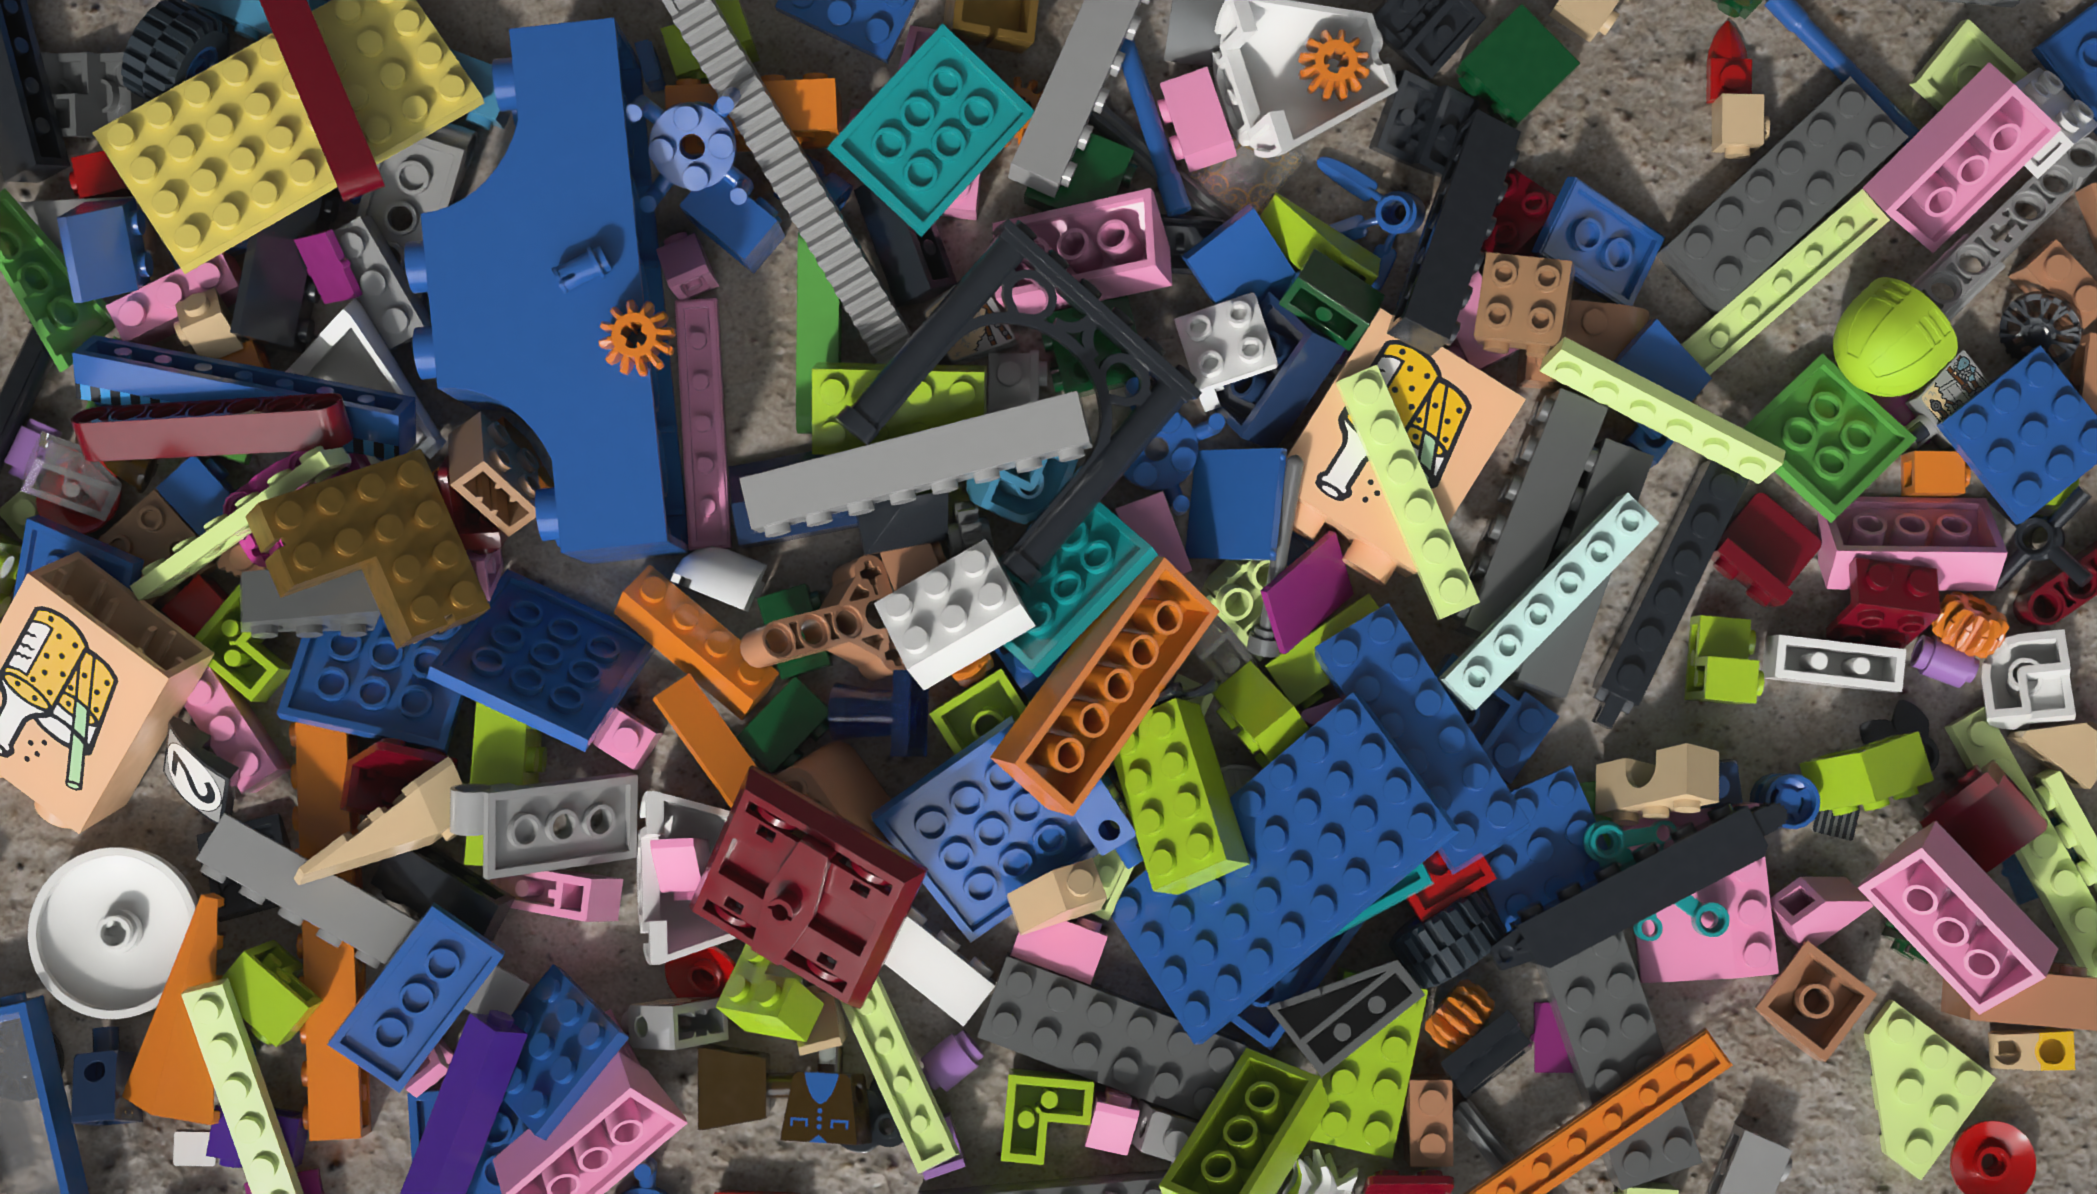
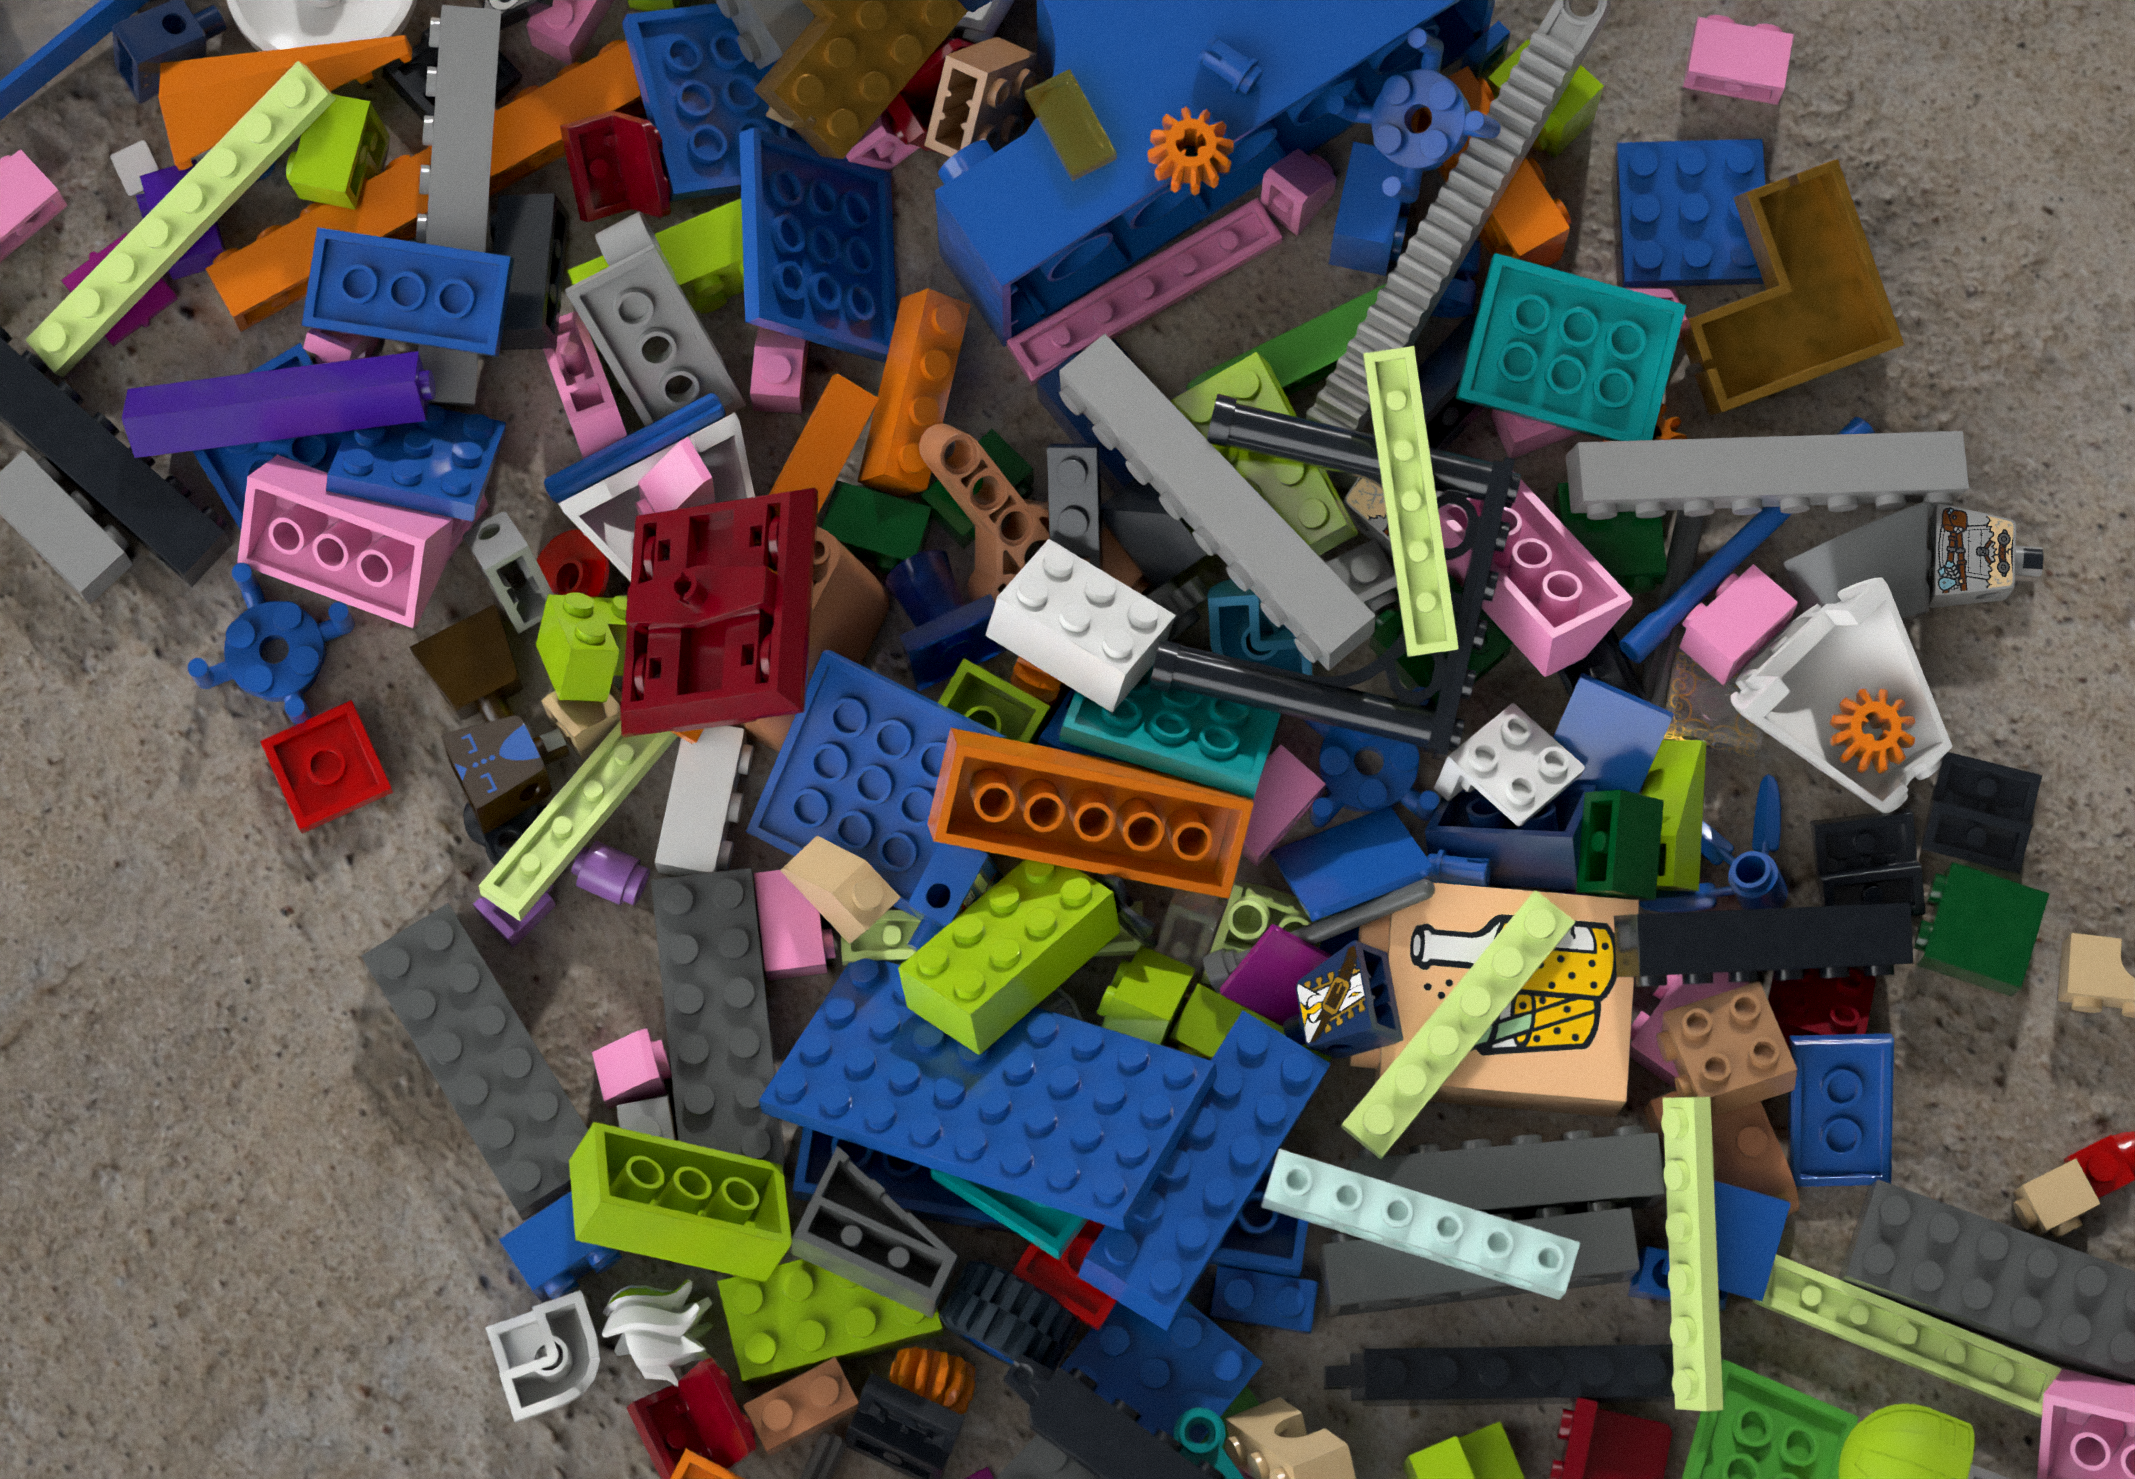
camera: 65 degrees right, 10 degrees down
(414, 822) = (570, 189): tan wedge -> none
(564, 419) = (1071, 125): none -> clear yellow tile
(628, 878) = (634, 448): none -> blue axle
(722, 576) = (996, 383): white brick -> none
(853, 566) = (1076, 499): none -> hinge
(1000, 315) = (1410, 501): none -> yellowish green plate
(1033, 1102) = (605, 976): lime brick -> none
(1285, 427) = (1460, 870): none -> blue pin
(1348, 566) = (1347, 1004): none -> dark blue torso

